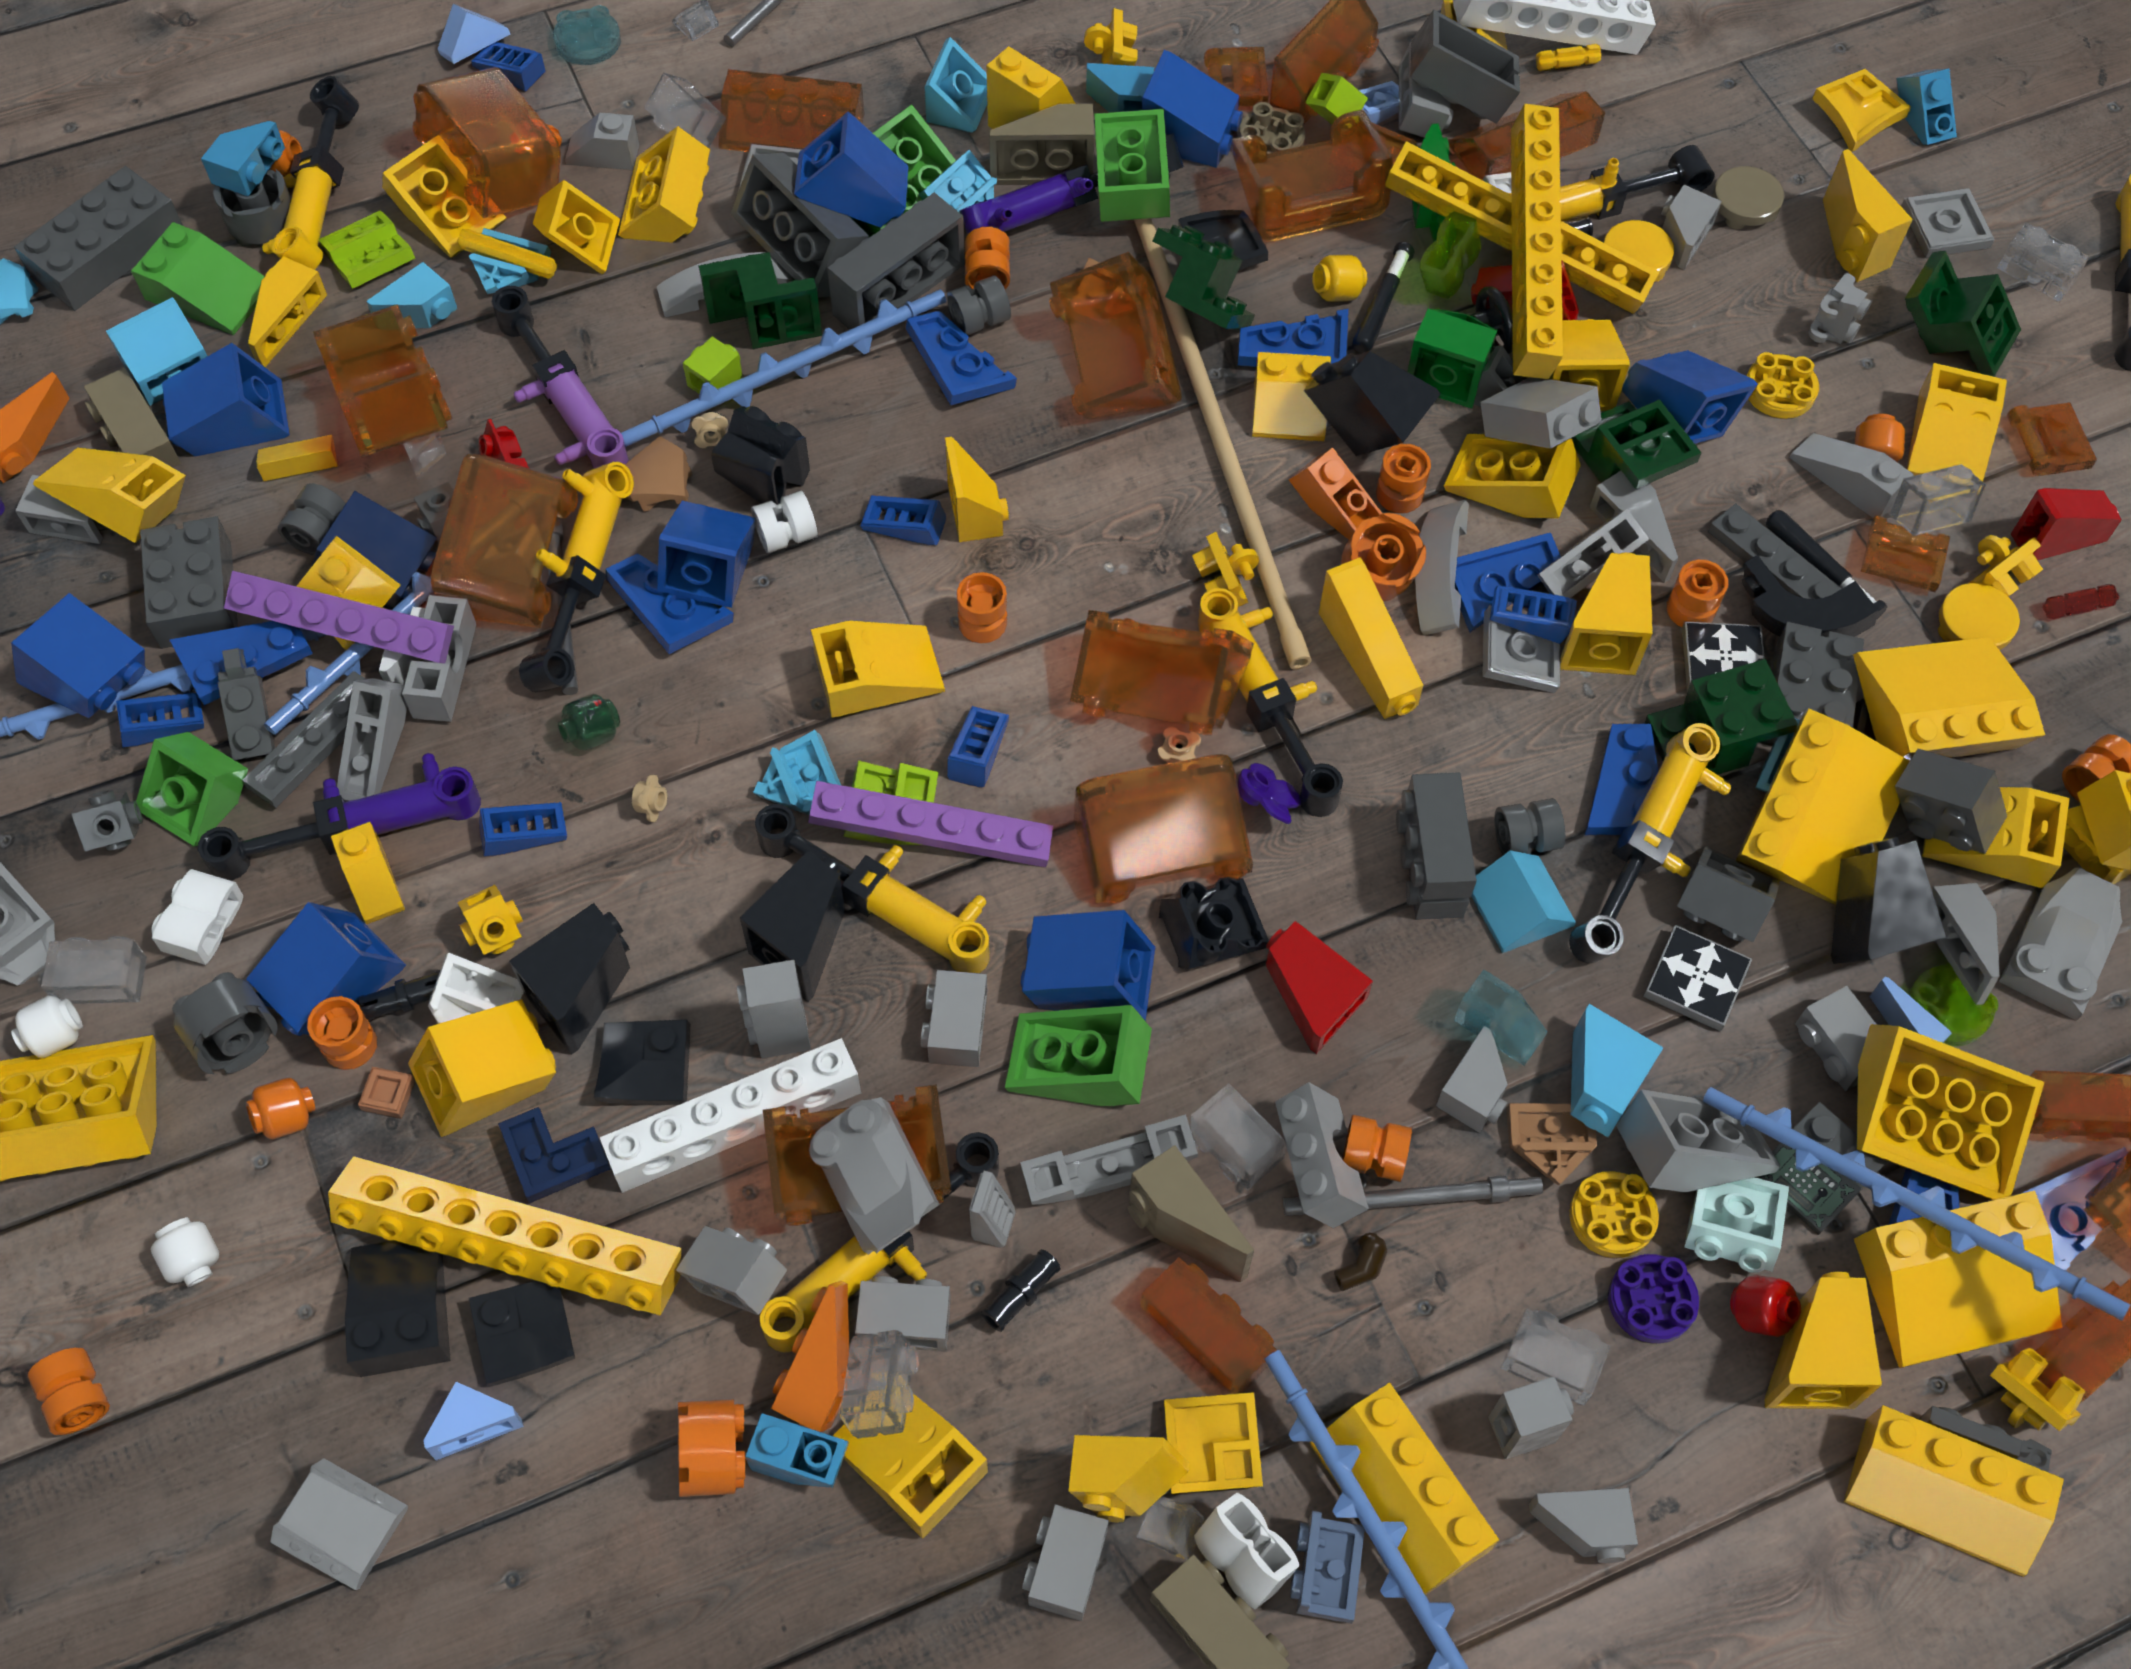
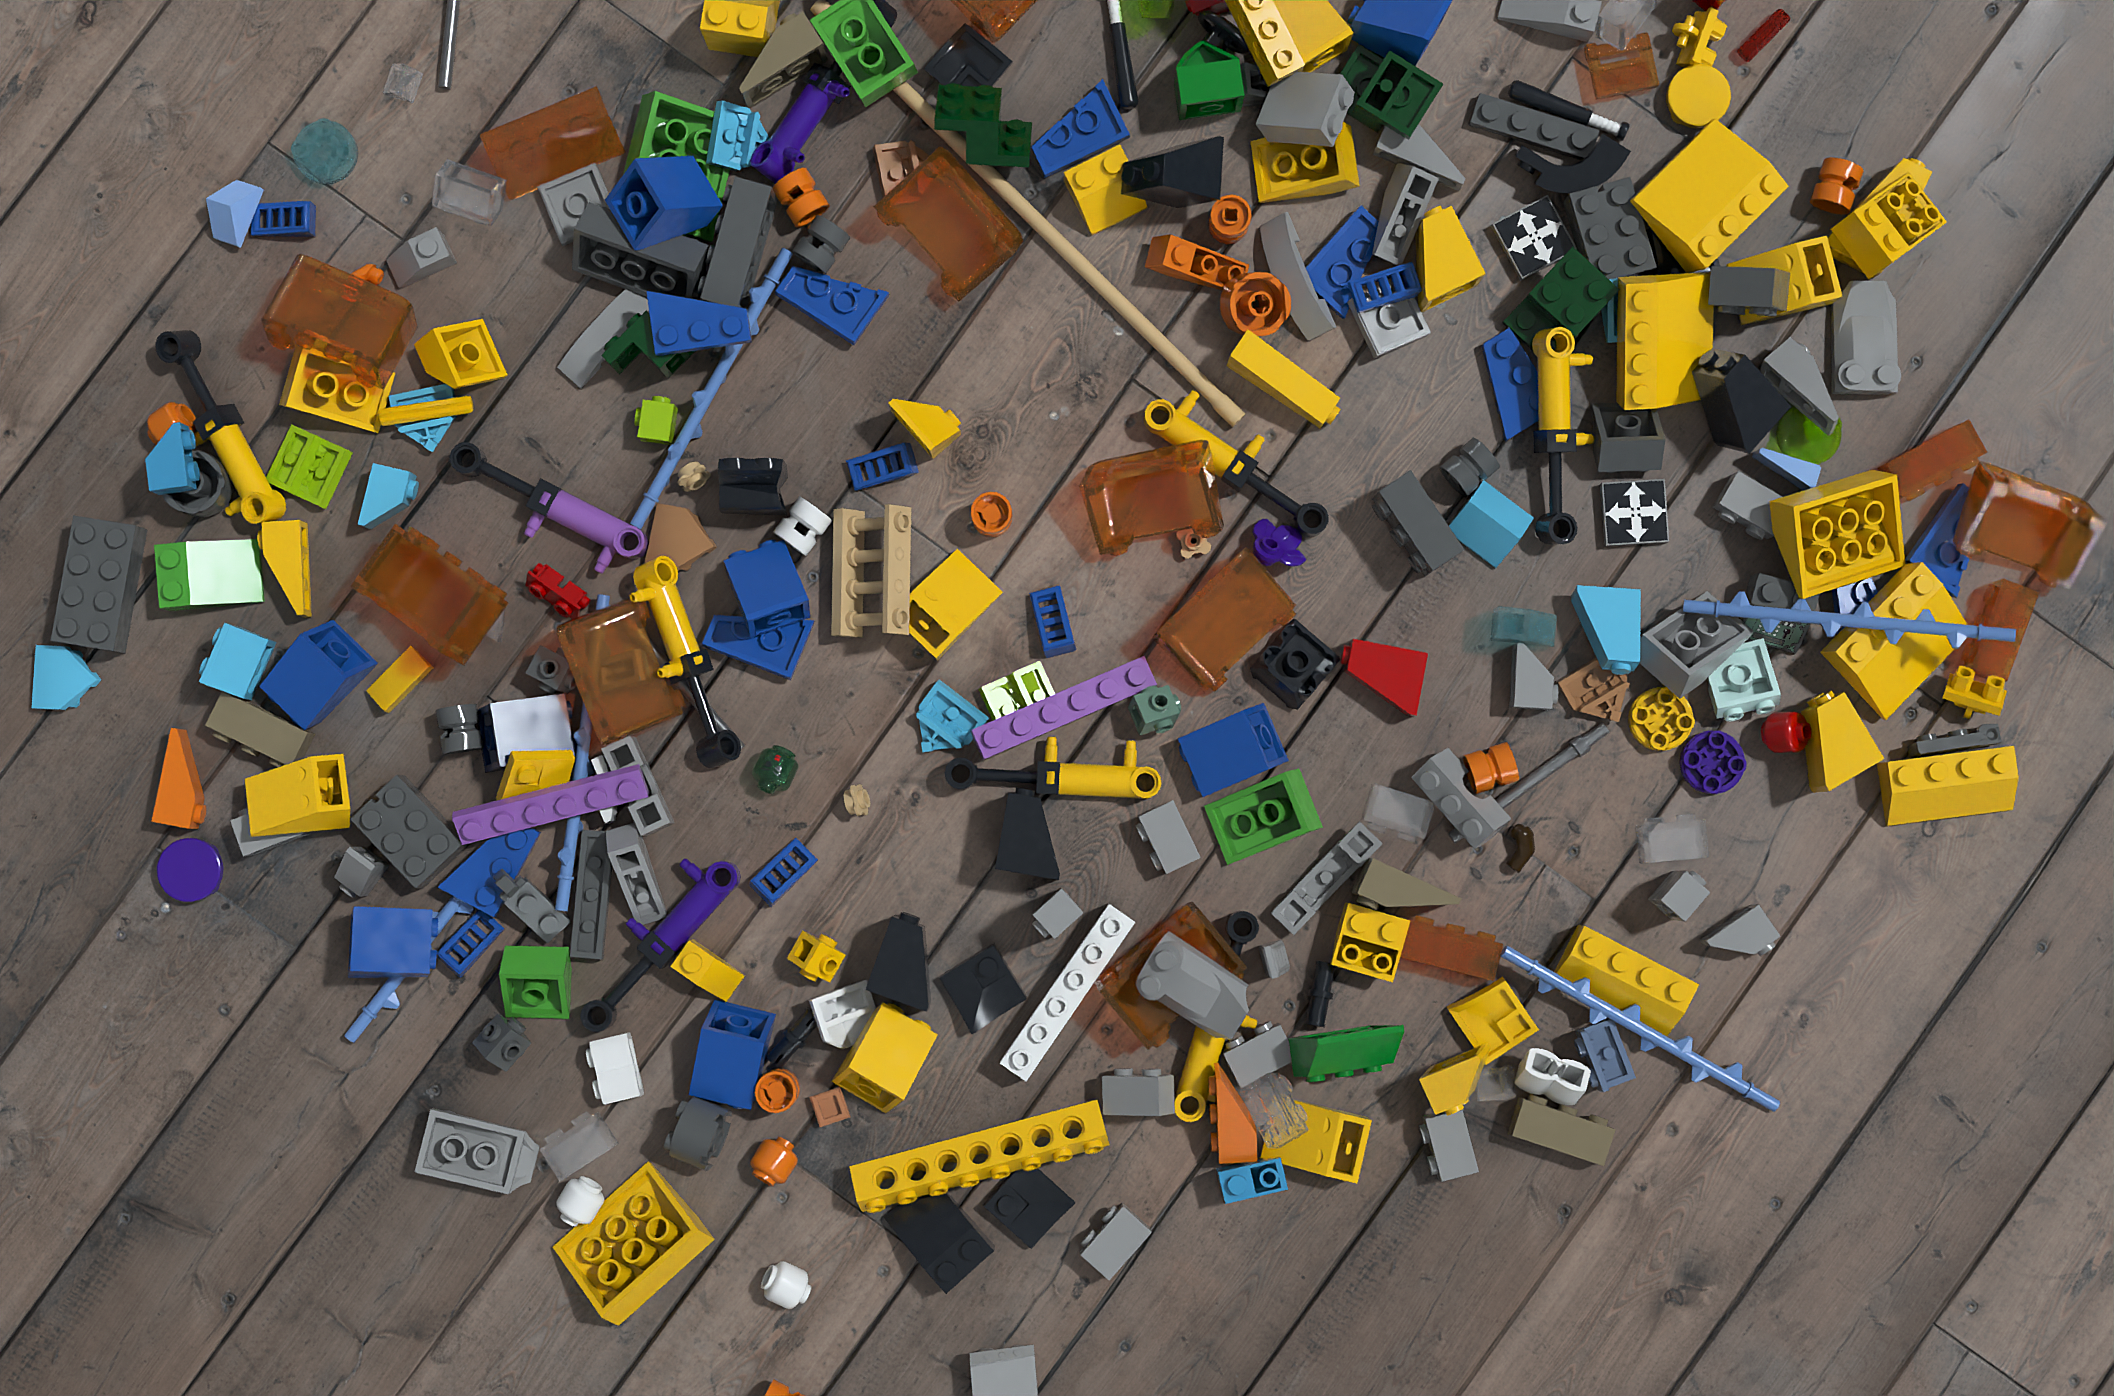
camera: 30 degrees left, 25 degrees up
(111, 585) = (360, 871): none -> light grey slope
(468, 1420) = (1038, 1275): light blue slope -> none
(546, 1165) = (969, 1094): dark blue plate -> none
(588, 1432) = (1114, 1241): none -> light grey brick
(665, 189) = (502, 274): yellow slope -> none
(708, 1447) = (1197, 1209): orange brick -> none
(805, 281) = (694, 324): none -> blue wing
(820, 587) = (848, 571): none -> tan fence
(956, 90) = (670, 35): medium azure slope -> none
(1008, 1357) = (1344, 1051): none -> green slope
(1028, 877) = (1154, 709): none -> sand green brick
(1116, 1254) = (1369, 941): none -> yellow slope
(1216, 558) = (1132, 367): yellow hips -> none
(1339, 278) = (1079, 51): yellow head -> none
(1697, 592) = (1492, 199): orange wheel -> none

